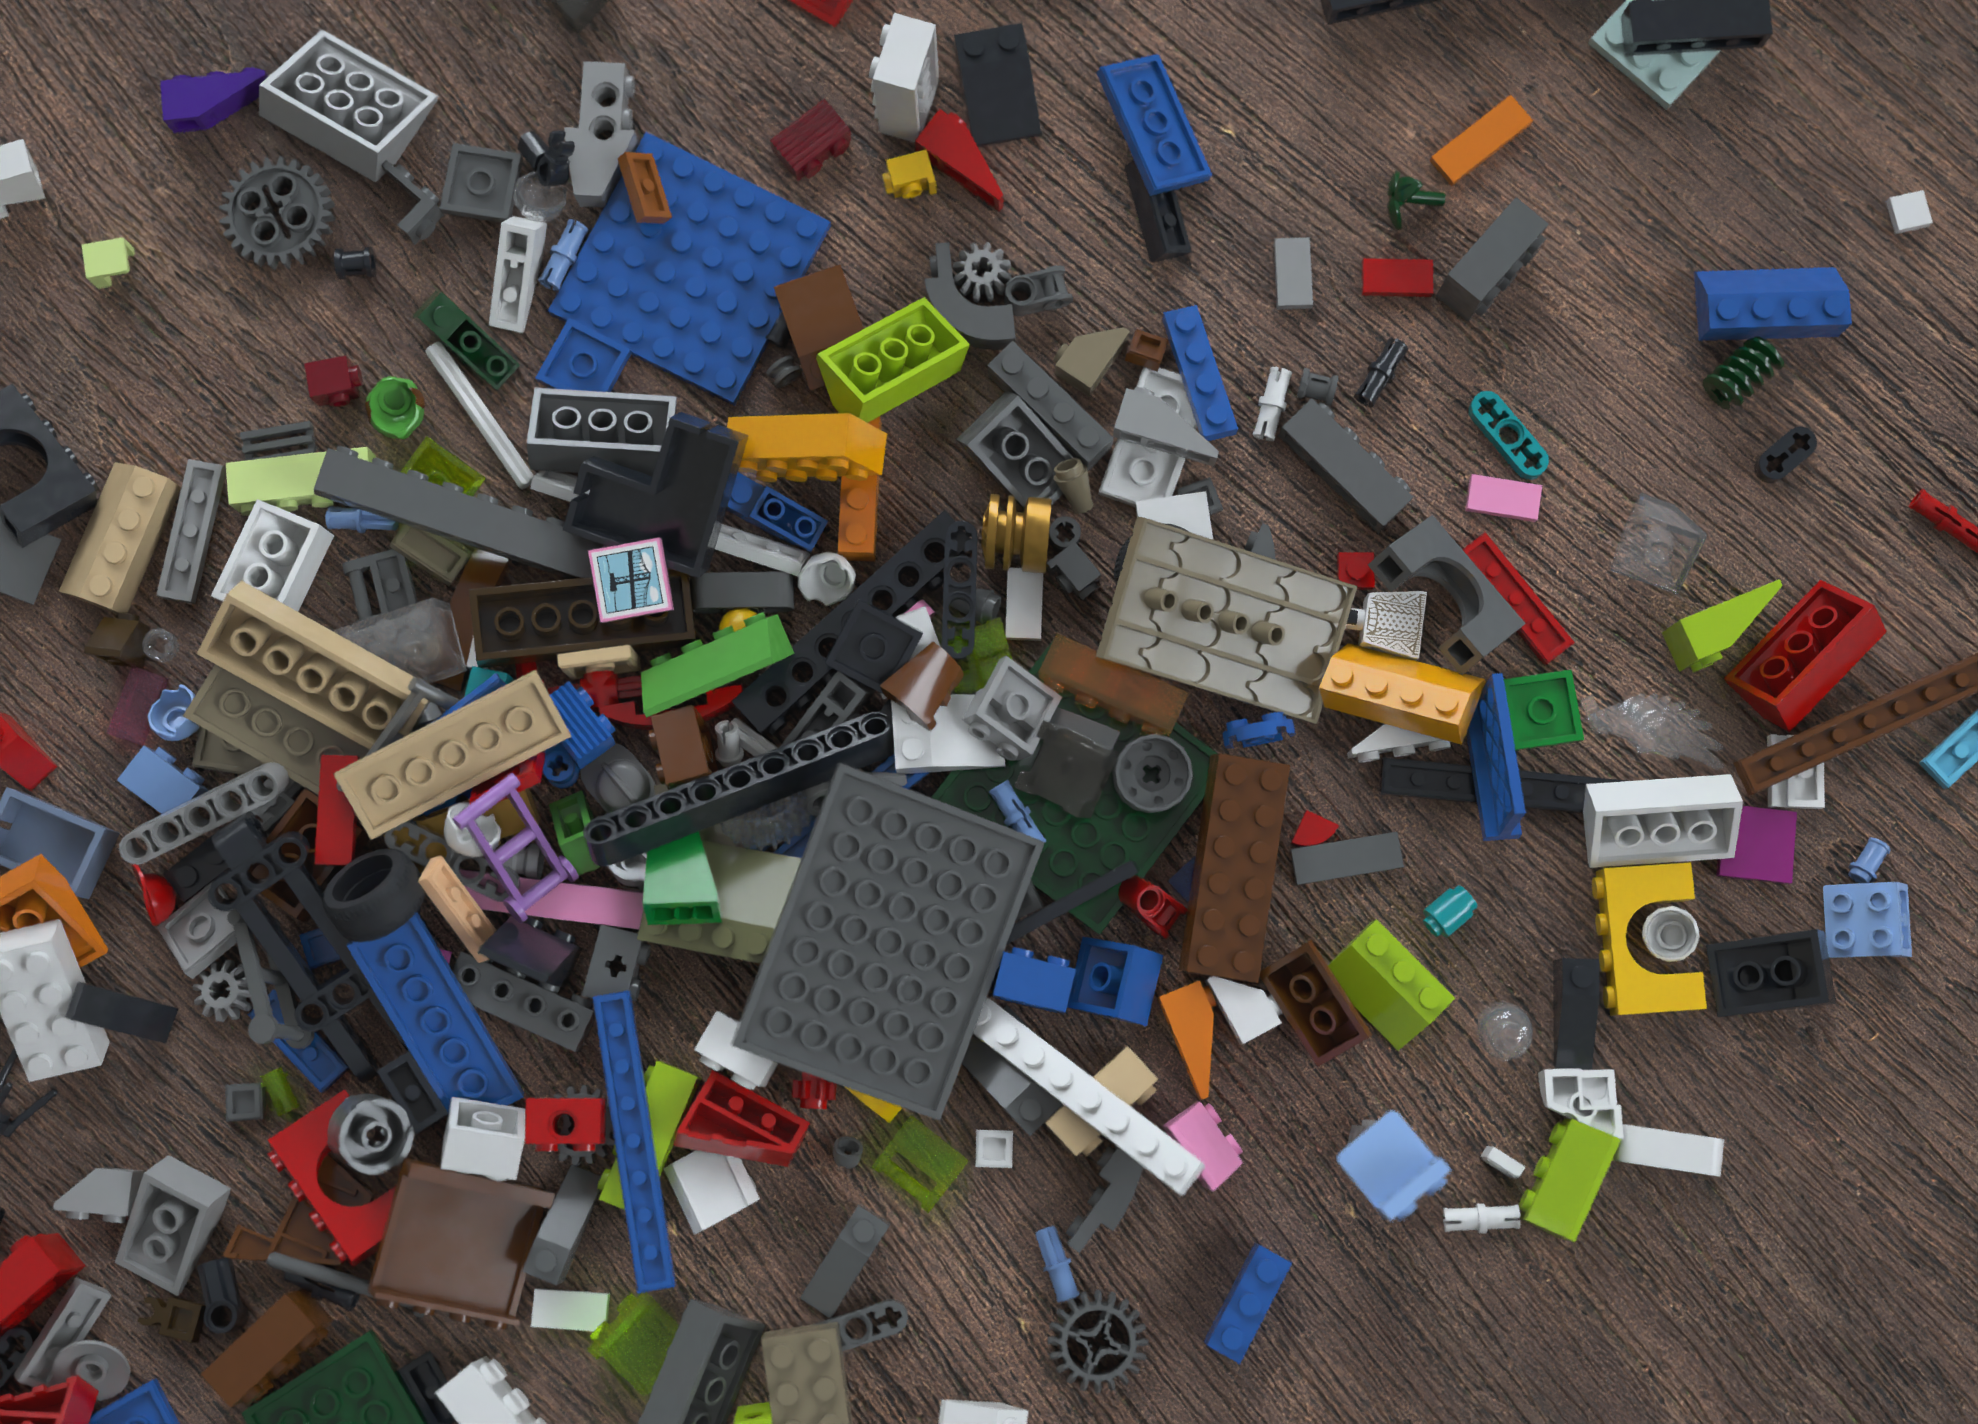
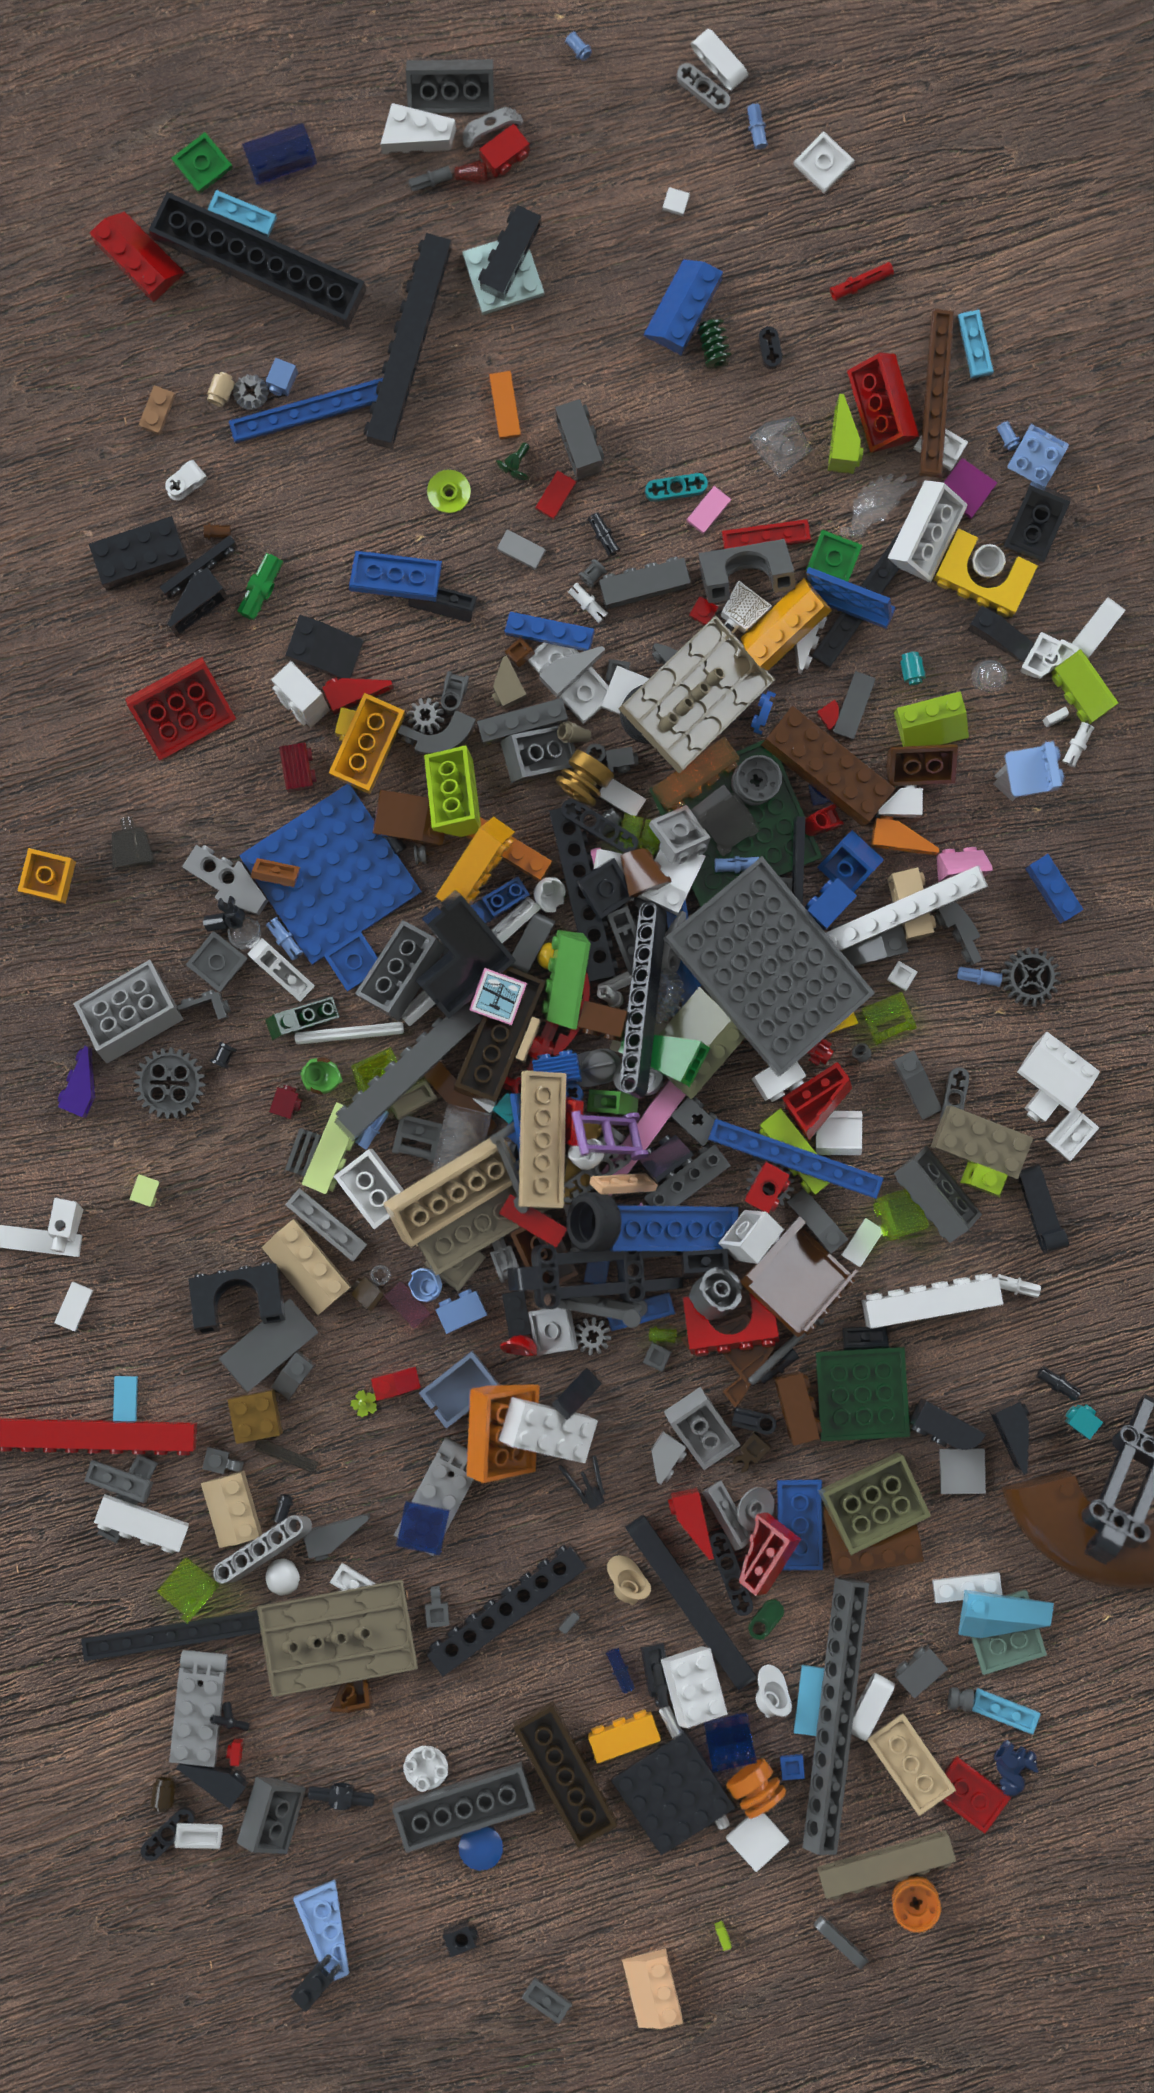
camera: 65 degrees left, 5 degrees up
(189, 821) = (498, 1302): light grey beam -> none
(896, 212) = (367, 743): none -> light orange slope
(1318, 115) = (445, 481): none -> lime dish

